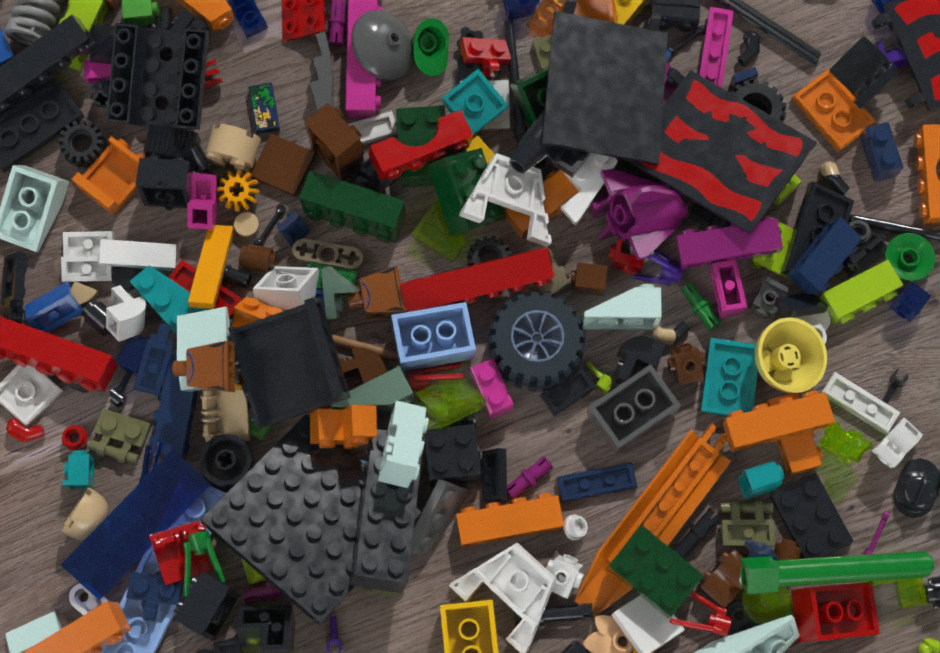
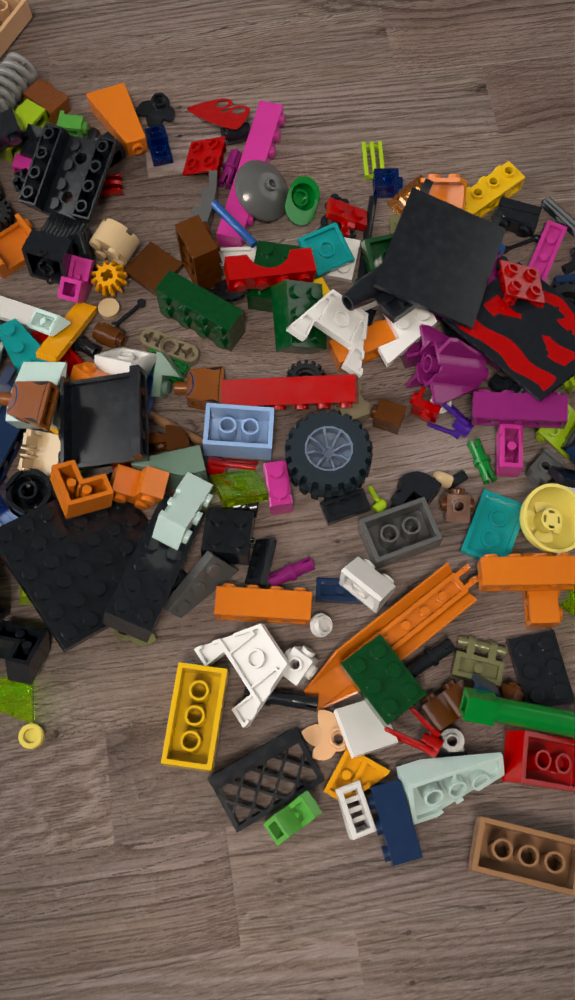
camera: 15 degrees right, 5 degrees down
(186, 262) = (47, 322): none -> light aqua slope
(260, 592) = (24, 614): magenta pin -> none
(264, 108) = (151, 221): tile -> none
(284, 453) = (79, 495): none -> orange brick
(293, 228) = (146, 318): dark blue tile -> none
(333, 634) = (80, 667): dark purple hand -> none
(363, 94) = (245, 235): none -> blue bar
(435, 235) = (263, 349): clear neon green wing -> none
(614, 472) = (366, 583): none -> white slope
(628, 311) = (414, 448): light aqua slope -> none
(699, 99) = (520, 283): none -> red hinge
(760, 479) = (500, 622): teal brick -> none
(777, 605) = (491, 737): clear neon green dish -> none

